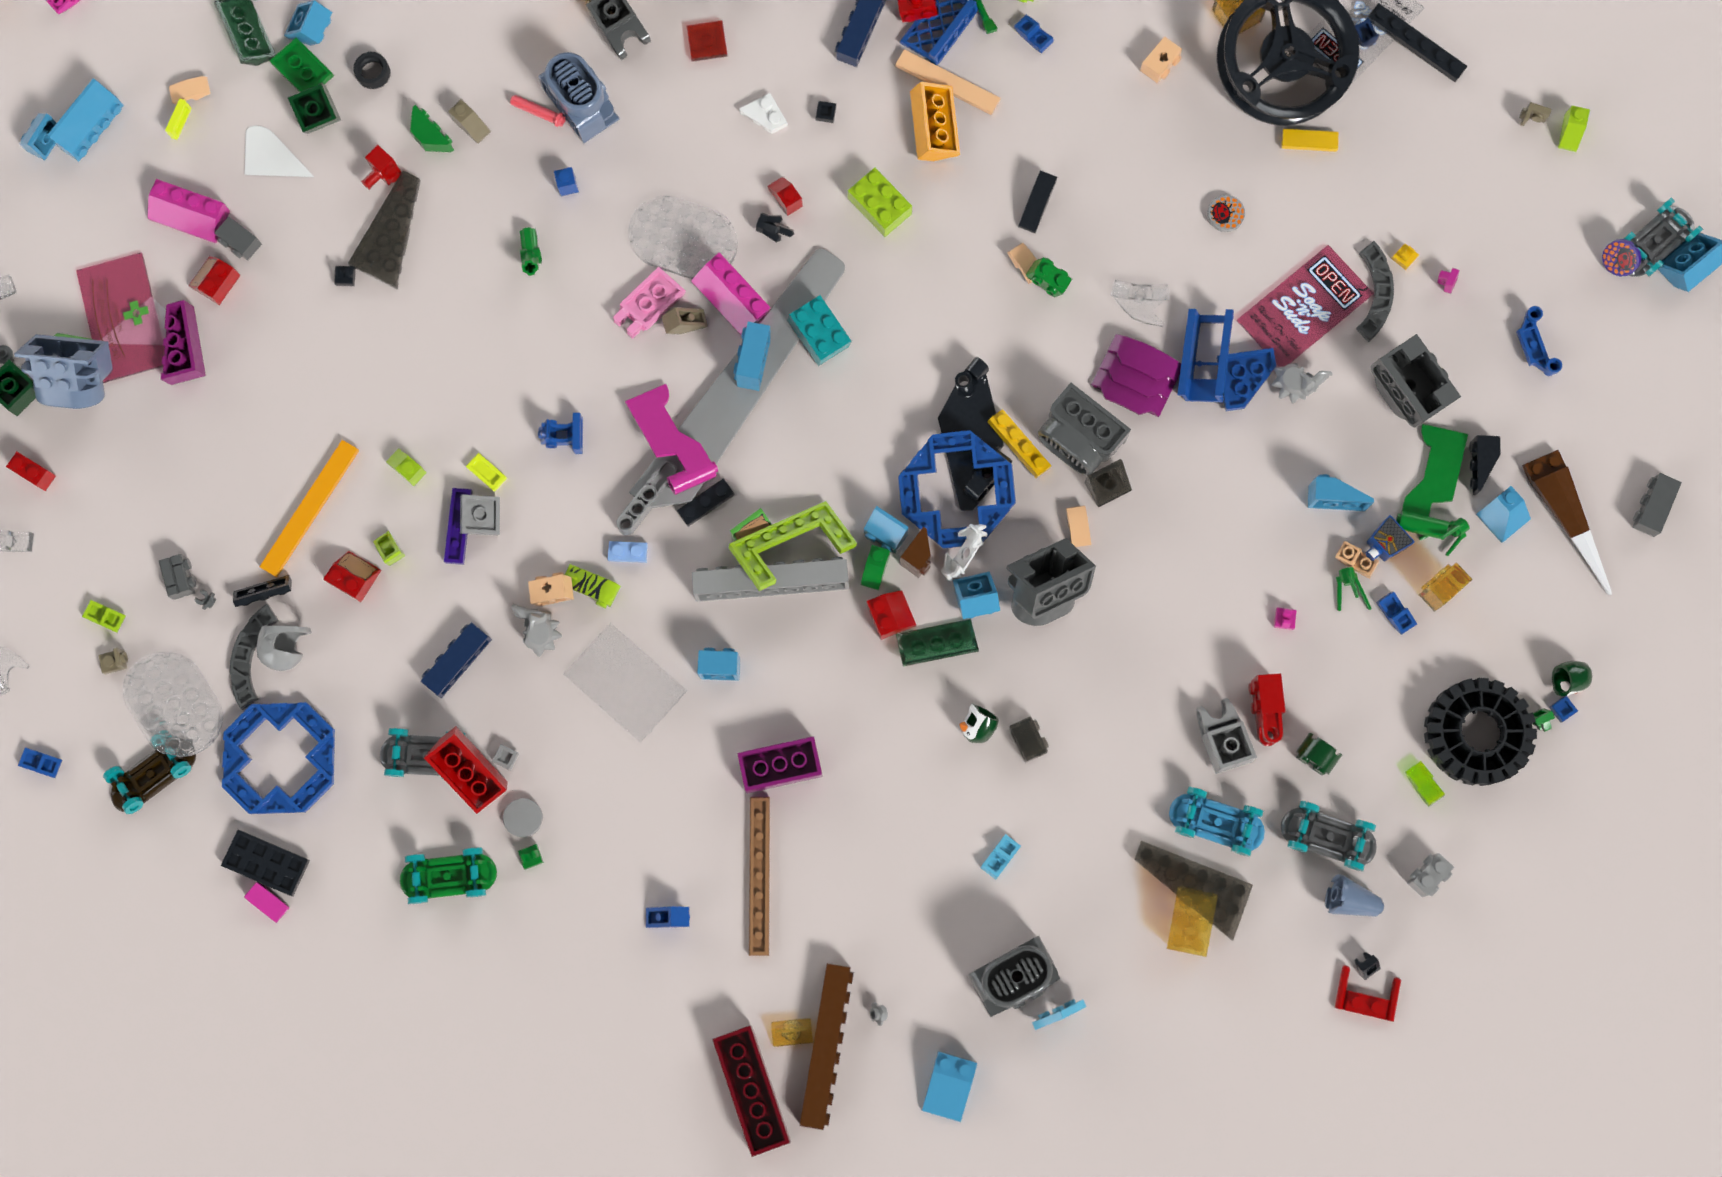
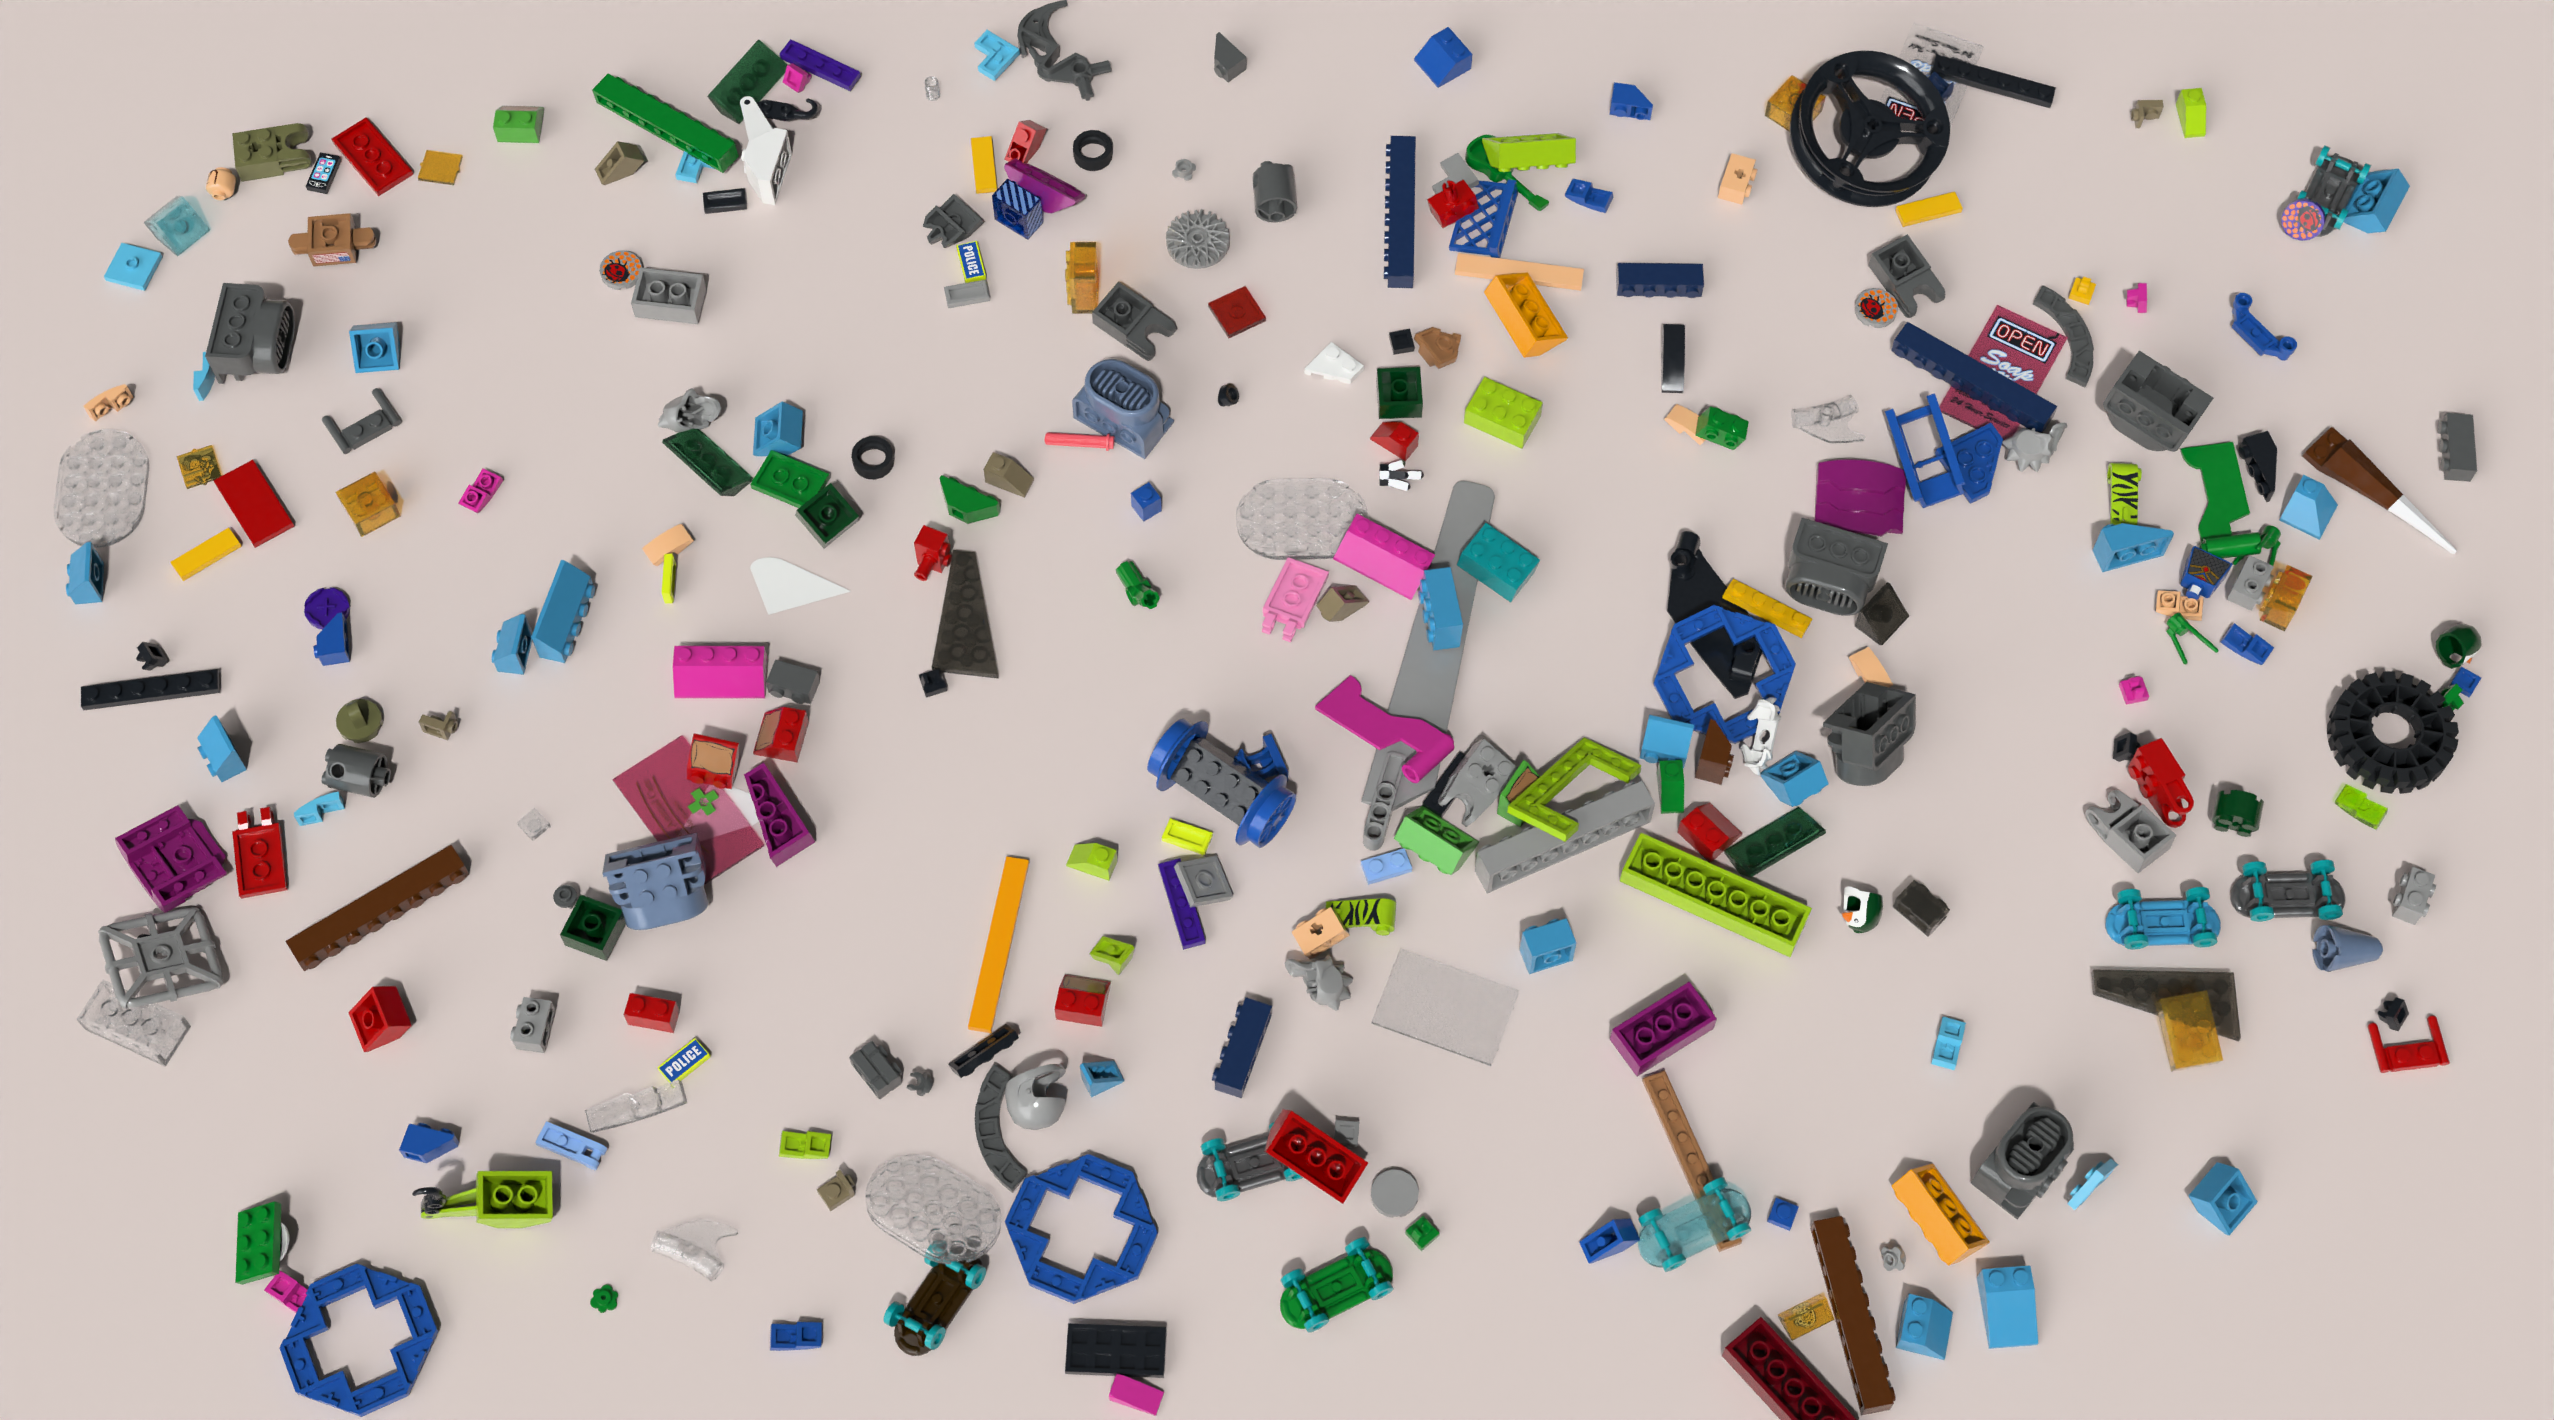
camera: 25 degrees left, 15 degrees down
(42, 517) = (684, 1061): none -> tile
(149, 285) = (713, 761): none -> slope
(340, 643) = (1100, 1076): none -> dark azure slope
(521, 442) = (1221, 782): none -> brick
(669, 111) = (1228, 395): none -> black tile
(673, 544) = (1435, 840): none -> slope
(716, 512) = (1473, 786): none -> light grey brick
(735, 932) = (1693, 1227): none -> clear light blue piece
(803, 156) = (1399, 392): none -> dark green brick
(810, 945) = (1782, 1214): none -> blue plate
(853, 126) = (1438, 347): none -> medium nougat plate
(869, 670) = (1715, 894): none -> lime brick
(878, 1077) = (1924, 1327): none -> dark azure slope
(930, 992) = (1939, 1214): none -> light orange slope
(1057, 128) = (1659, 280): none -> dark blue brick
(1158, 1063) = (2223, 1197): none -> dark azure slope
(1254, 665) = (2125, 747): none -> black tile
(1261, 198) = (1906, 274): none -> dark grey brick
(1276, 304) = (1973, 378): none -> dark blue brick
(1355, 447) = (2124, 492): none -> lime door
(1423, 562) = (2250, 583): none -> light grey brick

